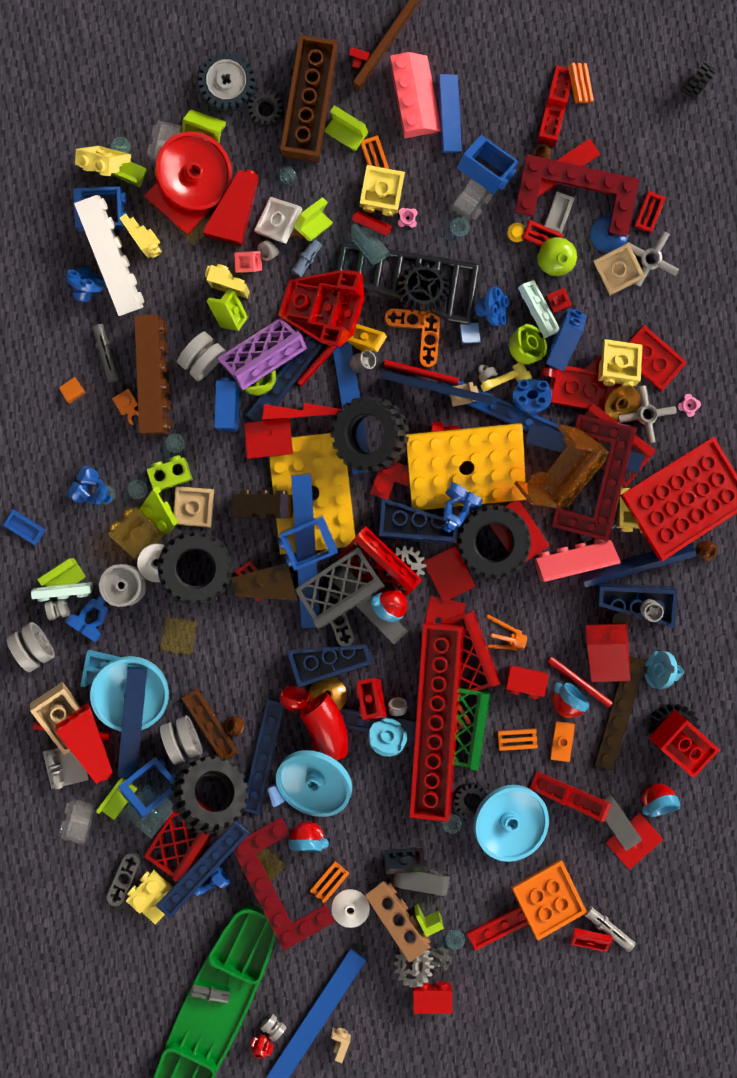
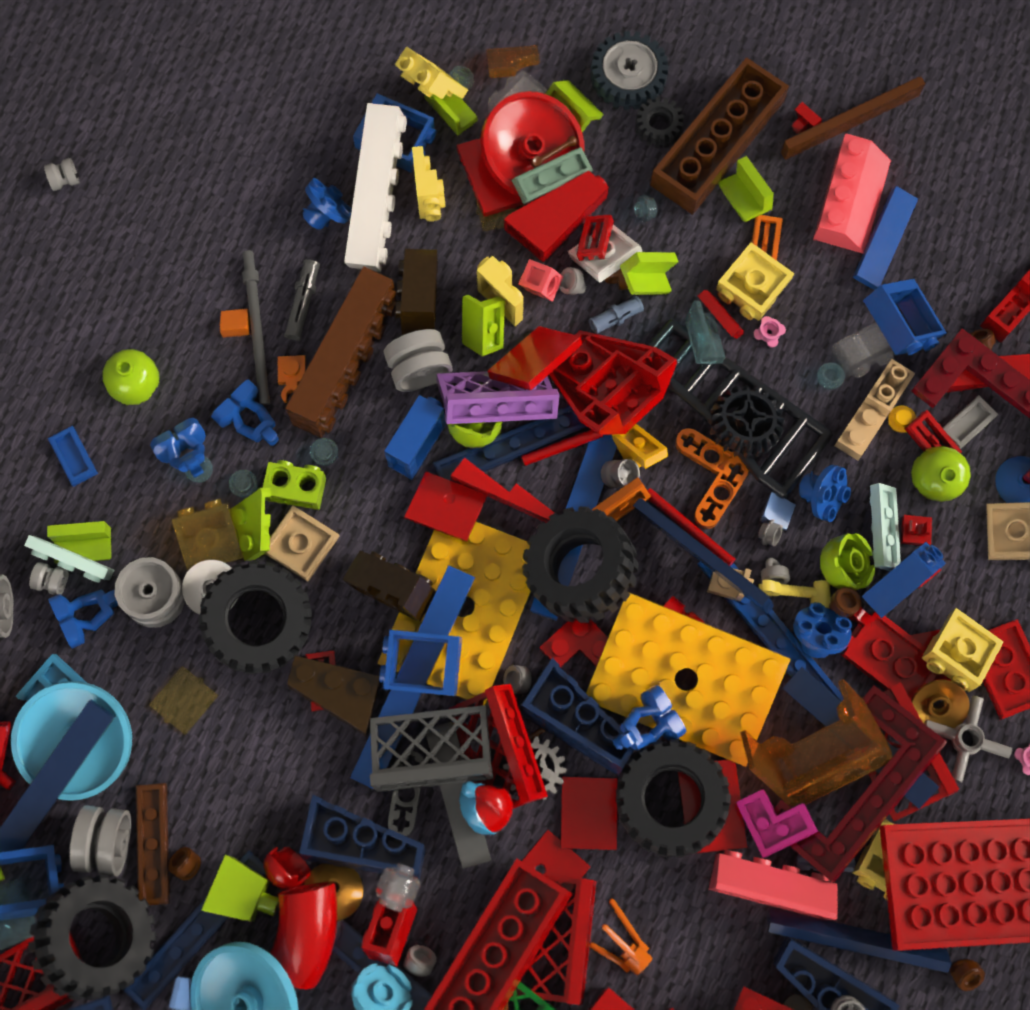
camera: 25 degrees right, 15 degrees down
(29, 459) = (130, 376): none -> lime cylinder
(65, 356) = (251, 279): none -> dark grey bar
(103, 447) = (230, 412): none -> blue piece
(145, 116) = (507, 61): none -> clear orange tile
(176, 311) = (417, 290): none -> dark brown wedge
(203, 182) = (537, 161): none -> reddish brown hinge
(217, 186) = (551, 175): none -> sand green tile
(272, 316) = (534, 358): none -> red tile
(276, 223) = (593, 251): none -> red tile
(276, 725) = (239, 892): none -> lime torso
(365, 676) = (398, 887): none -> clear head
(367, 519) = (519, 678): none -> light grey tile
(373, 379) = (623, 500): none -> orange tile
(471, 349) = (770, 533): none -> light grey plate
(497, 236) = (874, 409): none -> tan slope
(538, 371) = (845, 602): none -> reddish brown tile
(559, 529) = (773, 831): none -> dark pink plate

